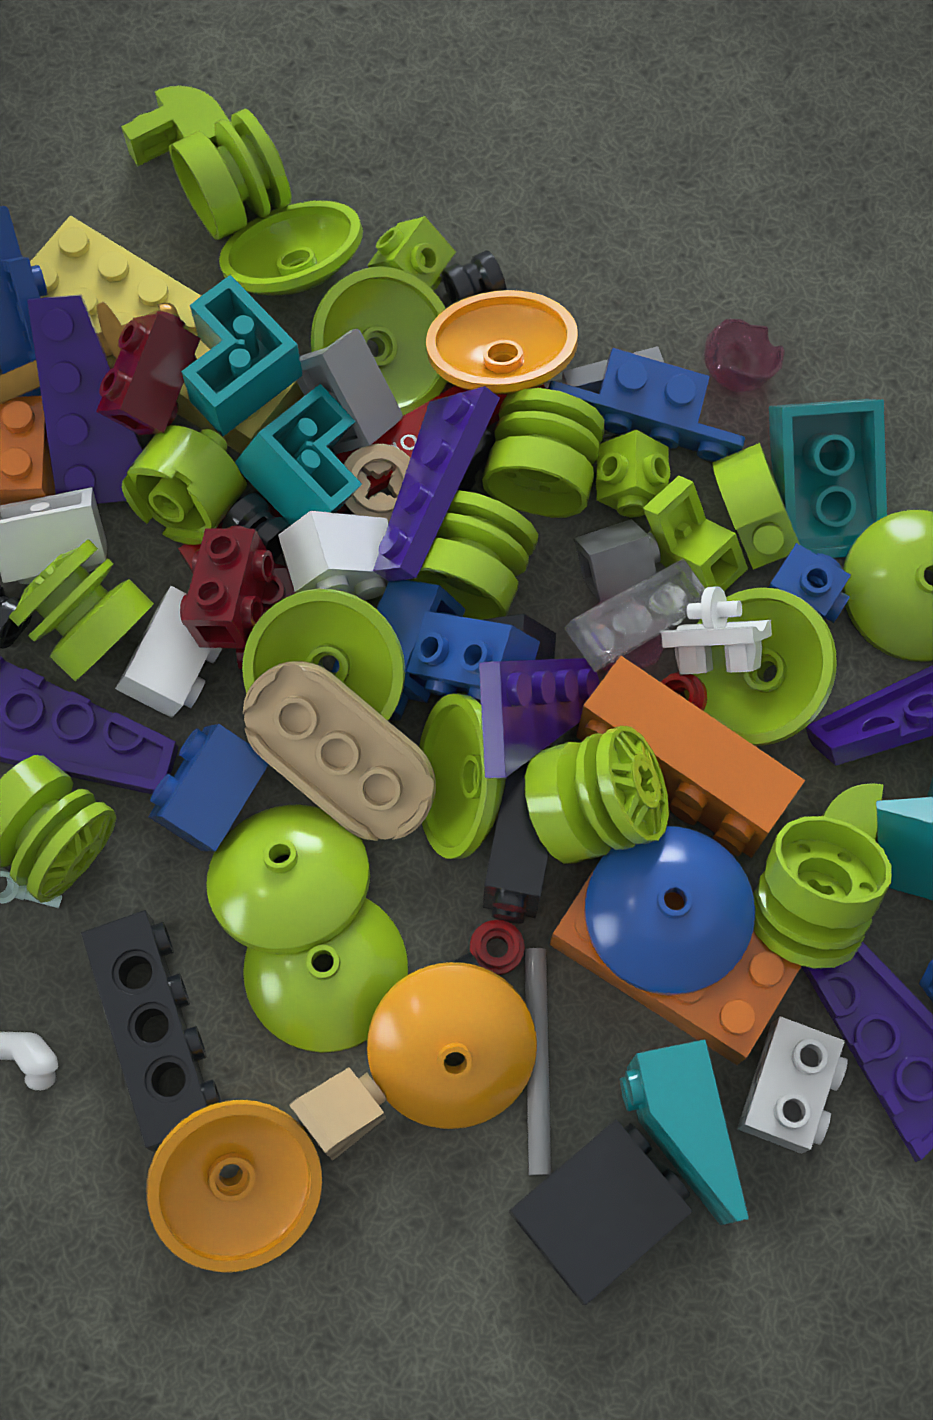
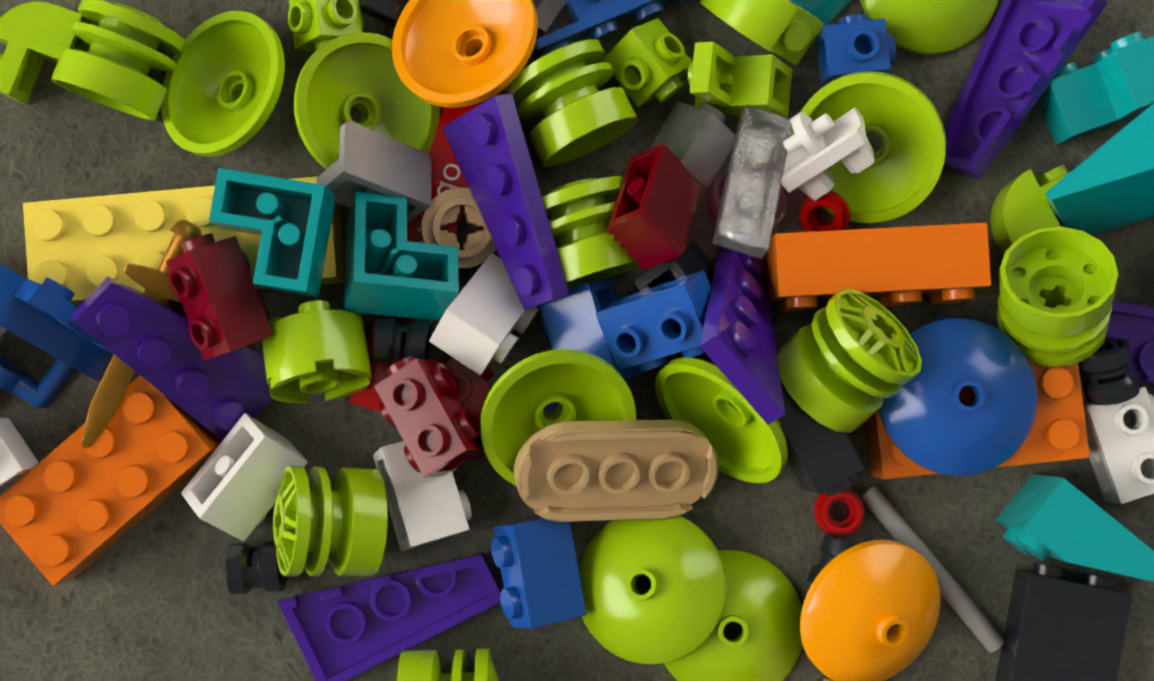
camera: 30 degrees left, 15 degrees up
(540, 568) = (654, 208): none -> dark red brick
(825, 988) = (1109, 374): none -> black wheel

